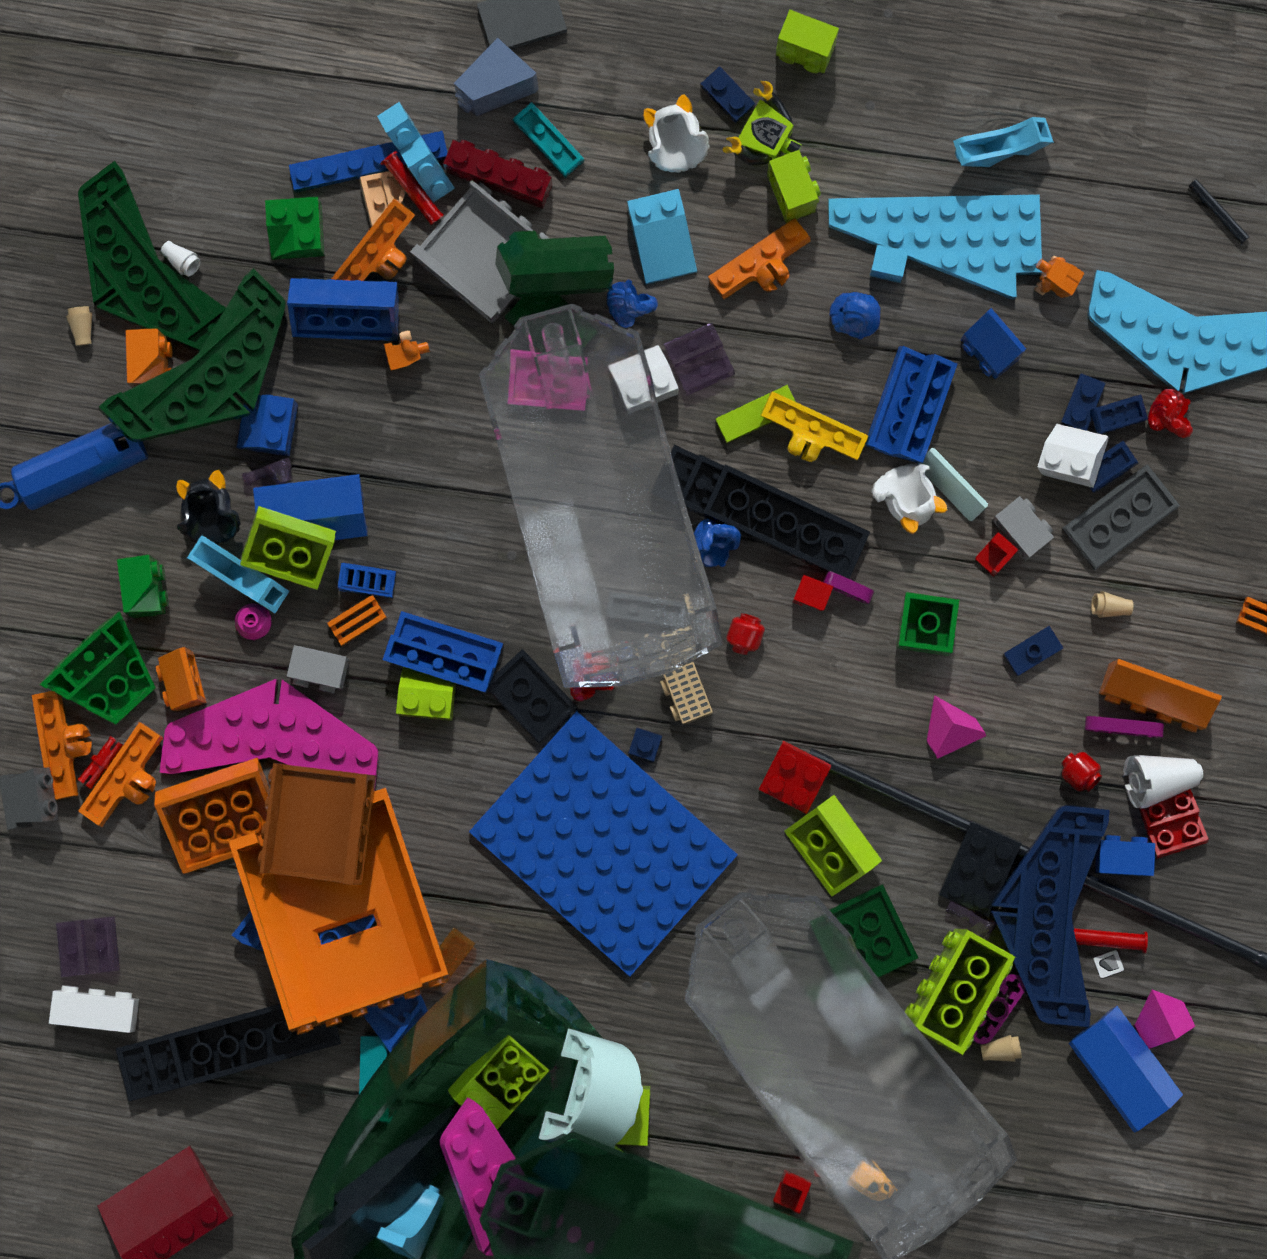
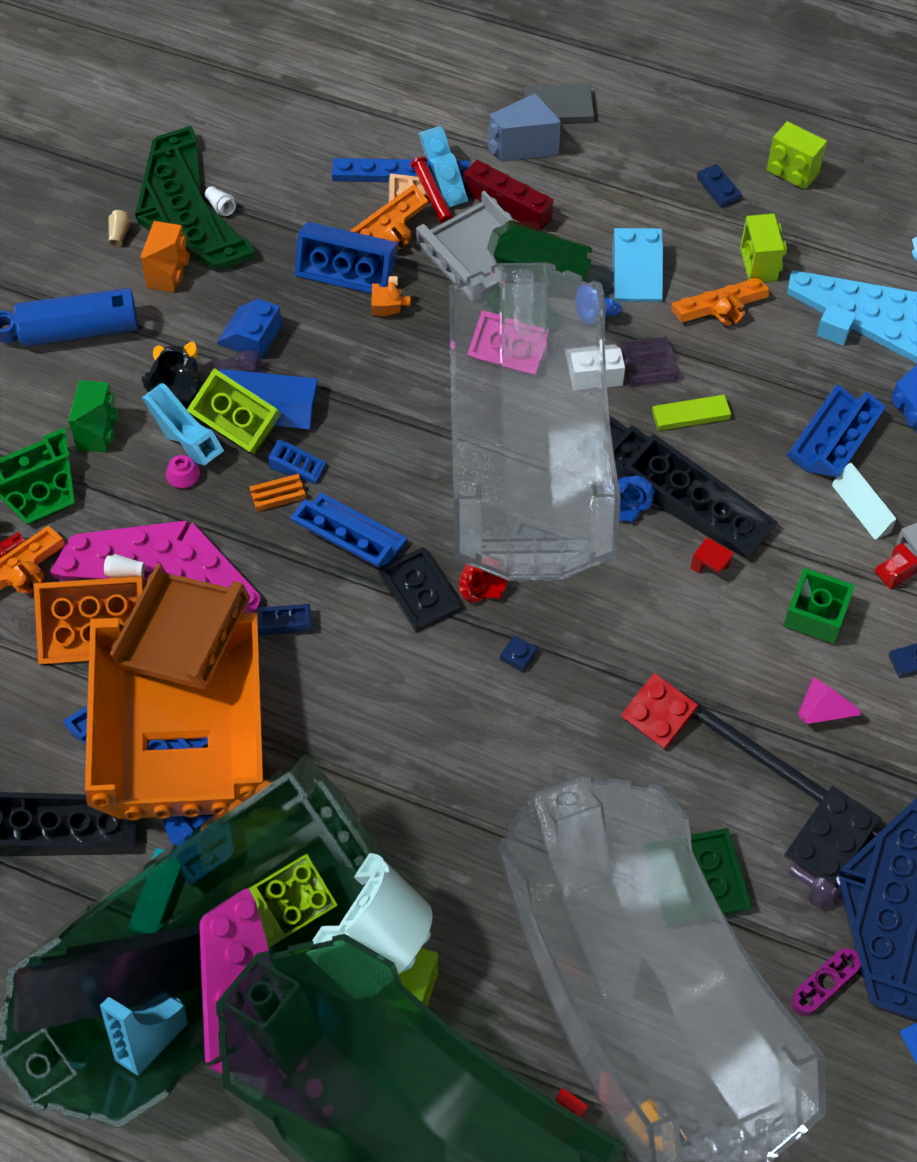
camera: 10 degrees right, 25 degrees down
(181, 680) = (100, 498): orange slope -> none
(205, 386) = (212, 281): dark green wing -> none
(230, 755) = (120, 567): none -> white cone
(295, 228) = (324, 197): green slope -> none
(317, 668) = (228, 519): light grey brick -> none
(407, 767) = (284, 619): none -> dark blue plate
(425, 696) = (320, 564): lime slope -> none
(548, 140) = (557, 186): teal tile -> none
(603, 843) = (452, 732): blue plate -> none
(676, 137) = (668, 199): white hair -> none
(687, 694) = (570, 616): tan brick -> none
(745, 633) = (639, 578): red head -> none
(765, 132) = (745, 203): torso -> none
(812, 429) = (740, 430): yellow plate -> none
(833, 846) = (687, 776): lime slope -> none
(849, 588) = (749, 564): magenta beam -> none
(855, 314) = (798, 354): blue hair -> none
(909, 495) = (822, 500): white hair -> none
(959, 989) = (798, 932): lime brick -> none
(1003, 1049) = (825, 1023): tan cone -> none

